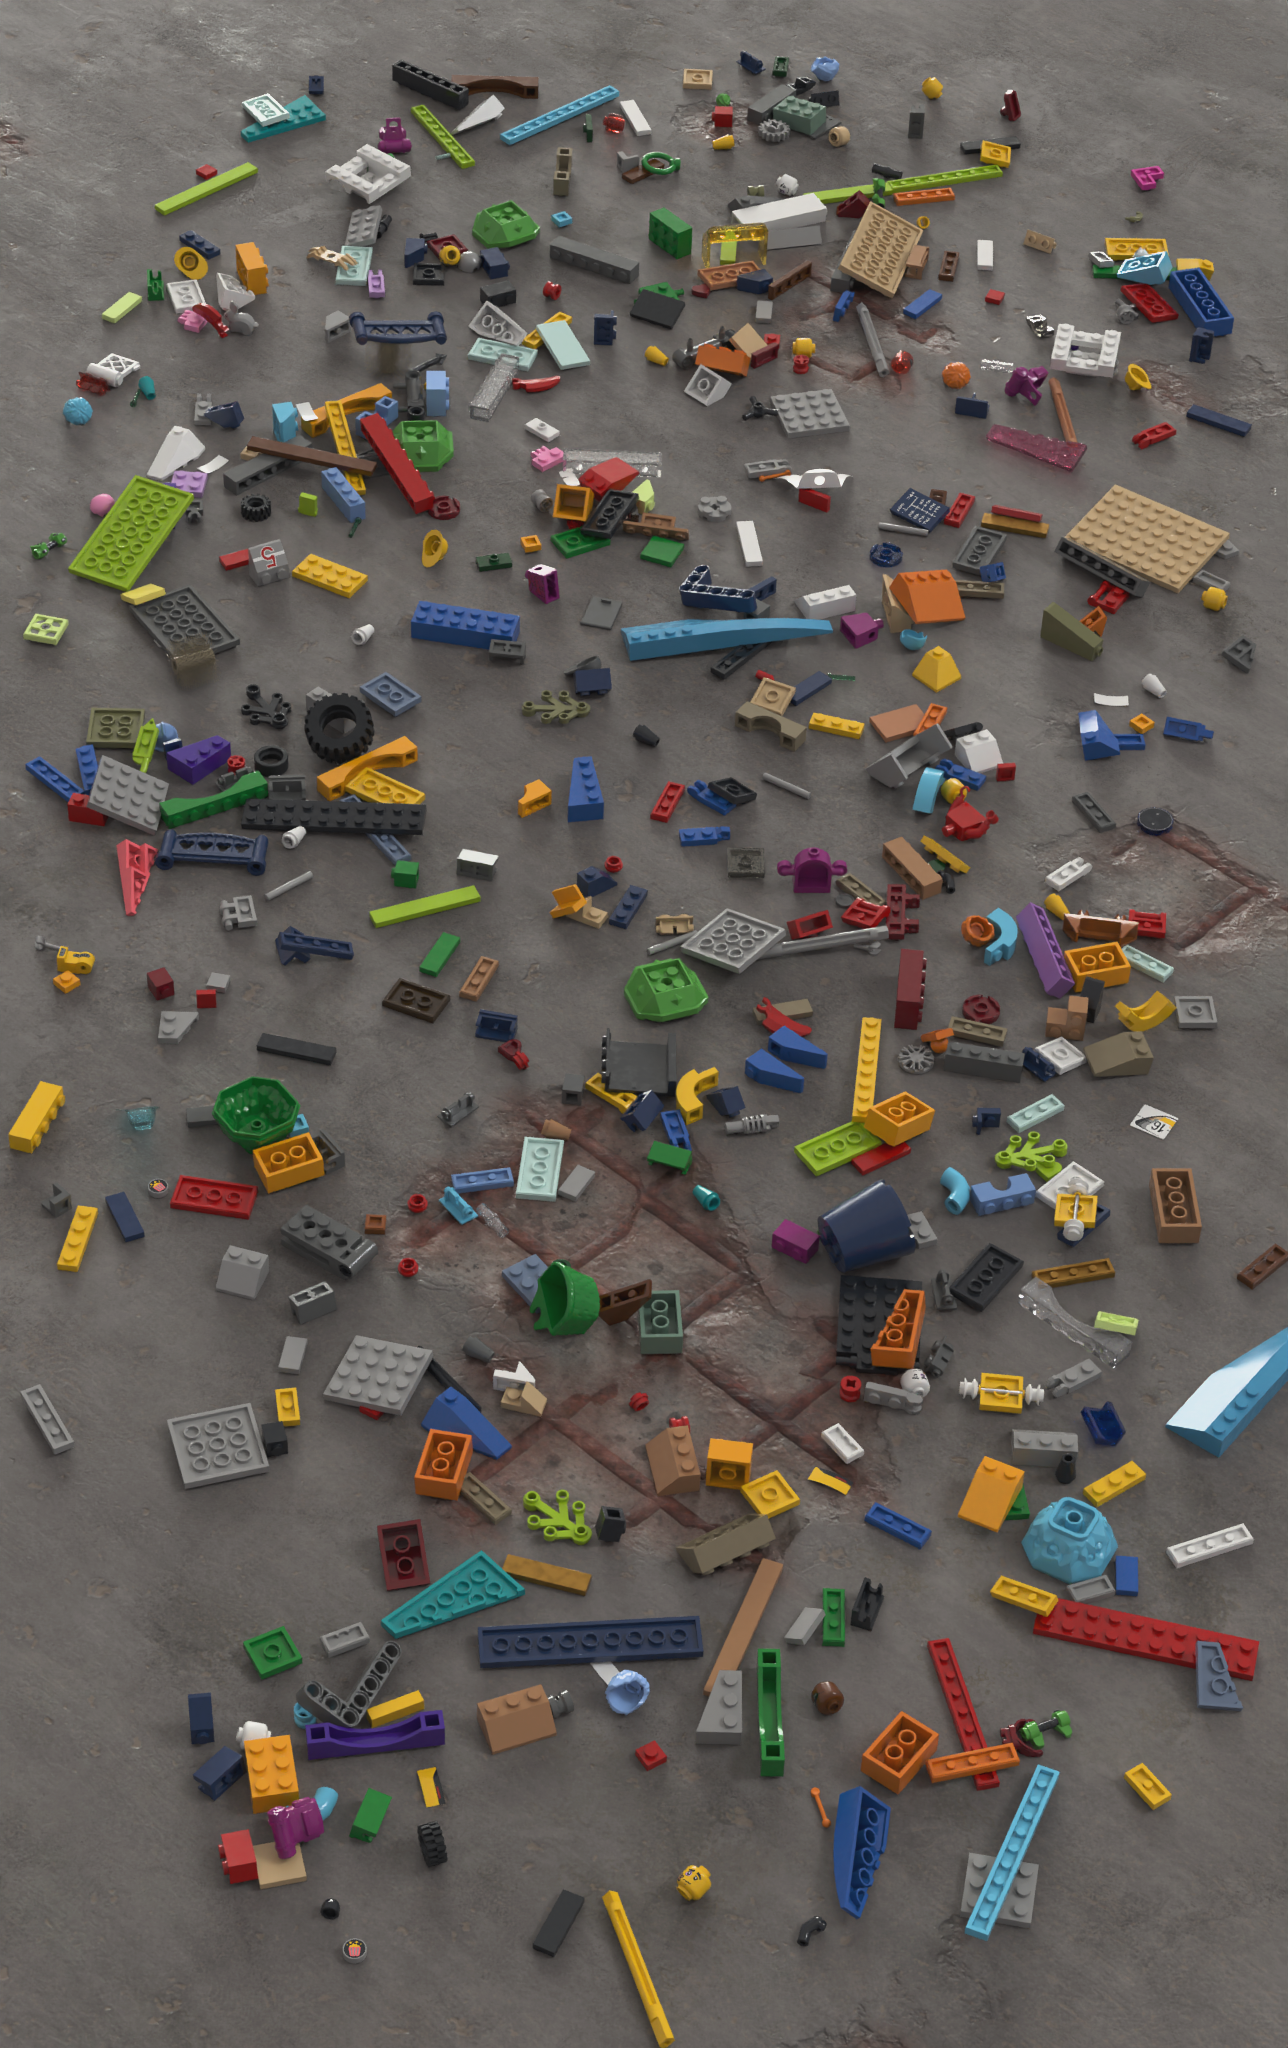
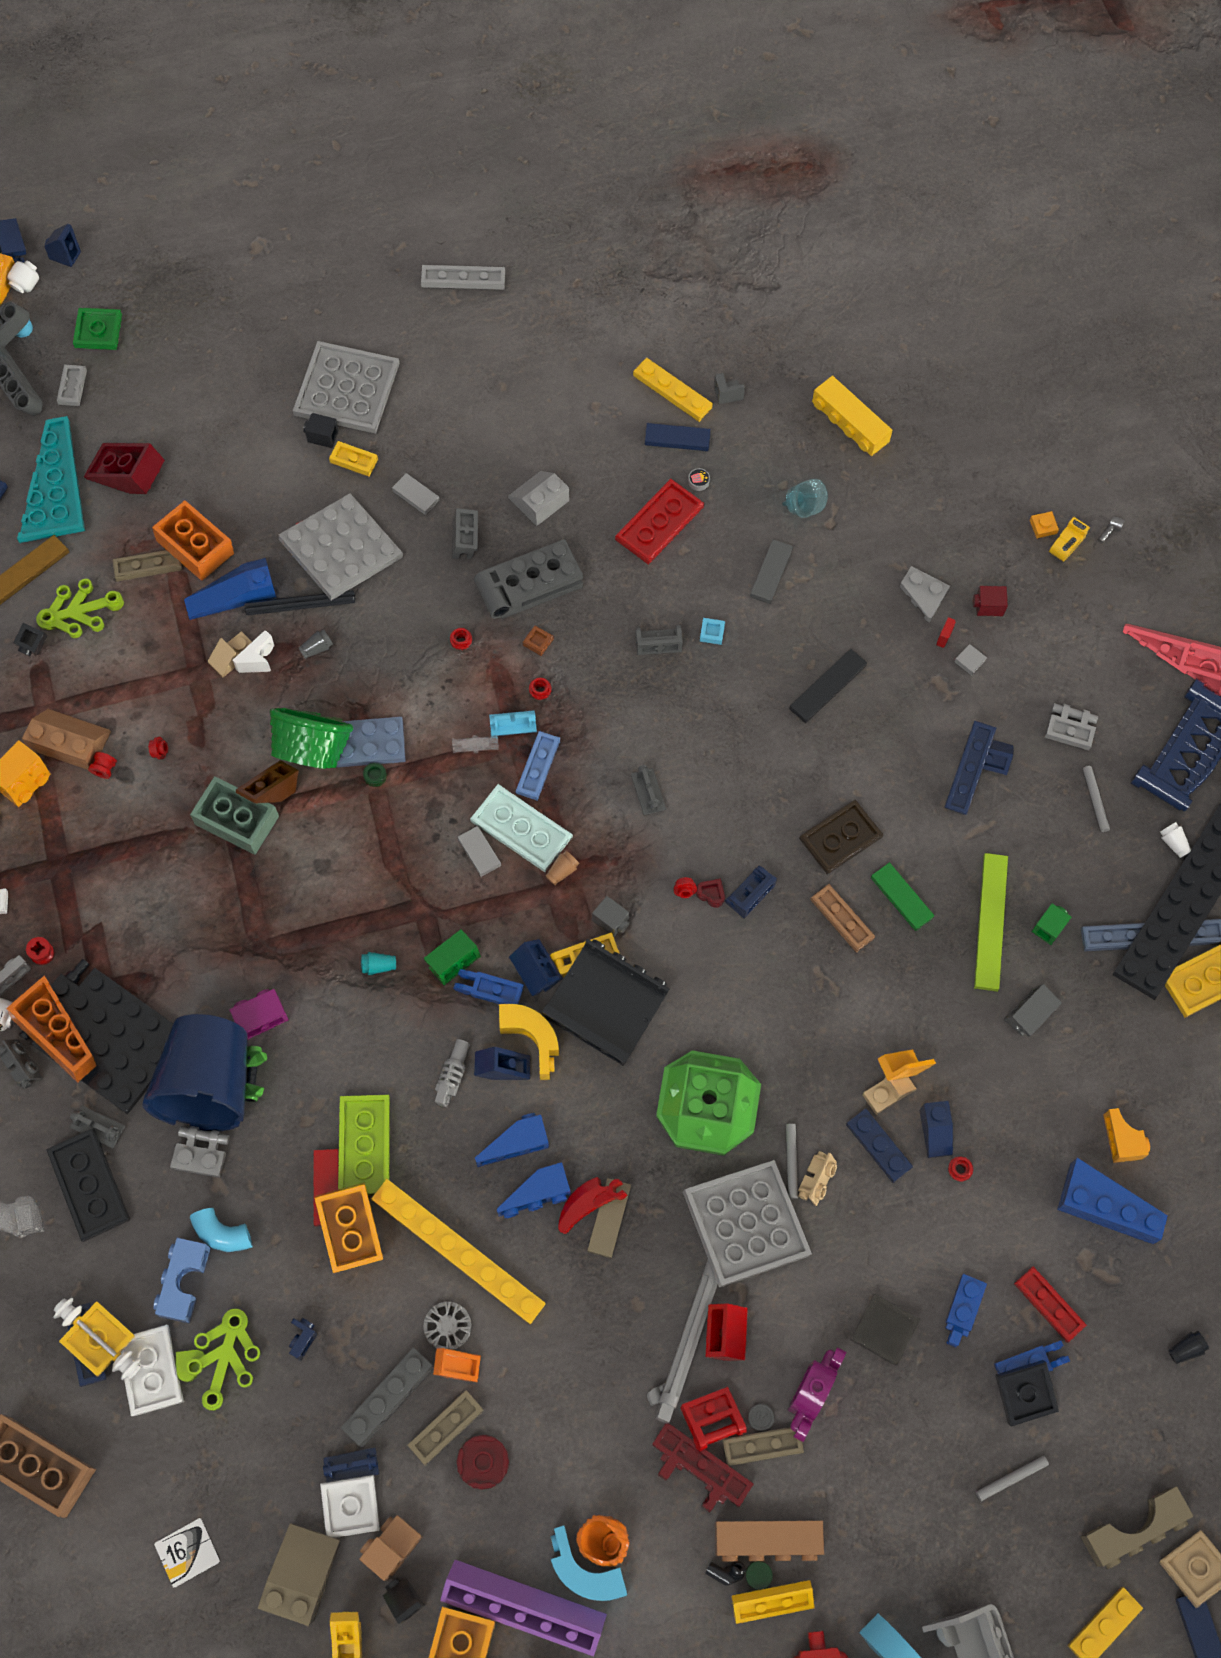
camera: 120 degrees right, 25 degrees up
(256, 1112) = (726, 577): green rock -> none
(288, 1162) = (655, 592): light orange brick -> none
(910, 989) = (547, 1378): dark red brick -> none
(1035, 1113) = (283, 1411): light aqua tile -> none
(1076, 1273) = (32, 1287): pearl gold tile -> none

